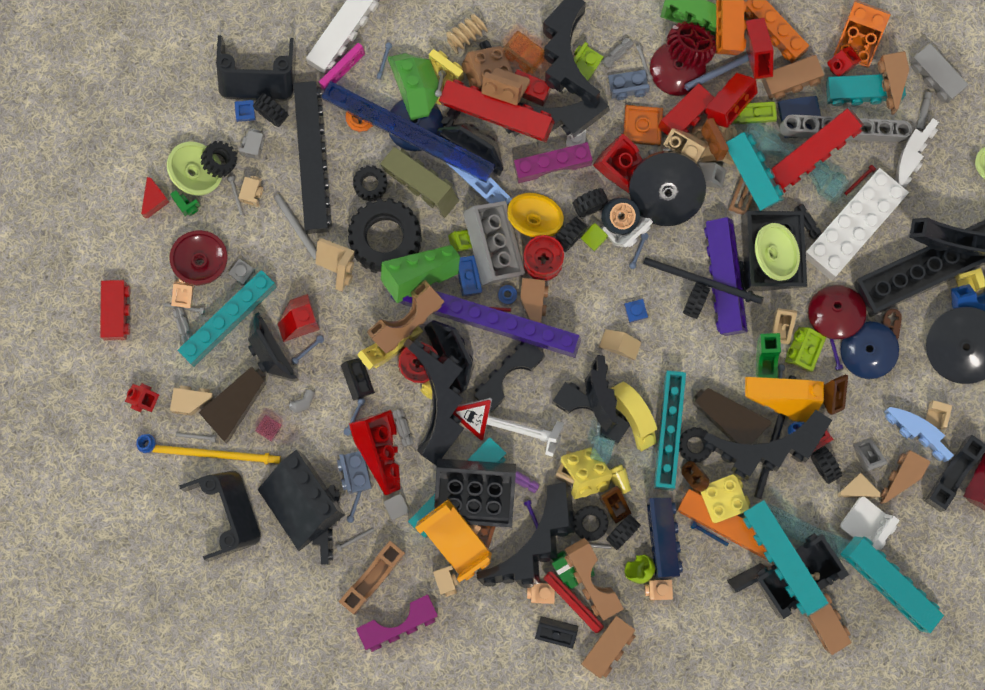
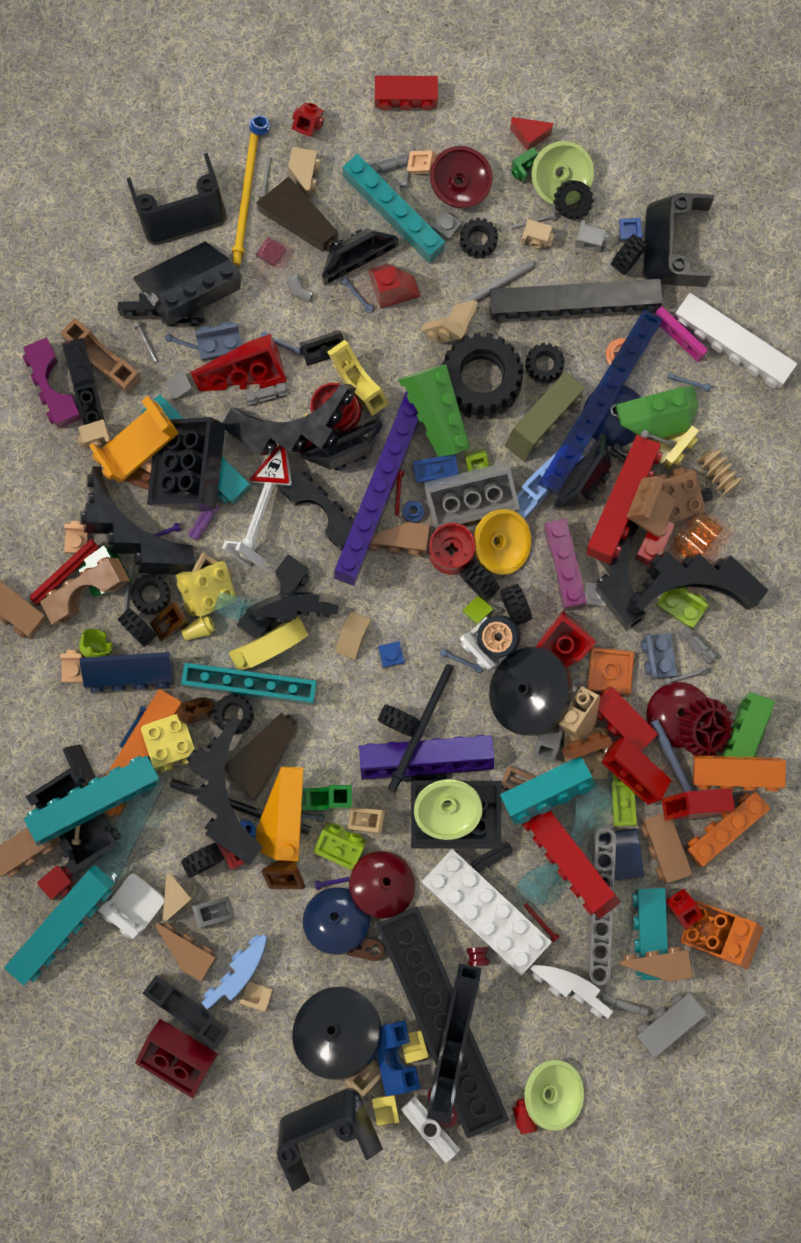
camera: 90 degrees right, 0 degrees up
(254, 231) = (481, 250): none -> black tyre
(389, 333) = (365, 372): medium nougat arch -> none
(398, 591) = (83, 381): none -> black slope
(556, 632) = (33, 554): black slope -> none
(851, 592) = (57, 882): none -> red brick
(892, 230) = (478, 956): none -> dark red wheel

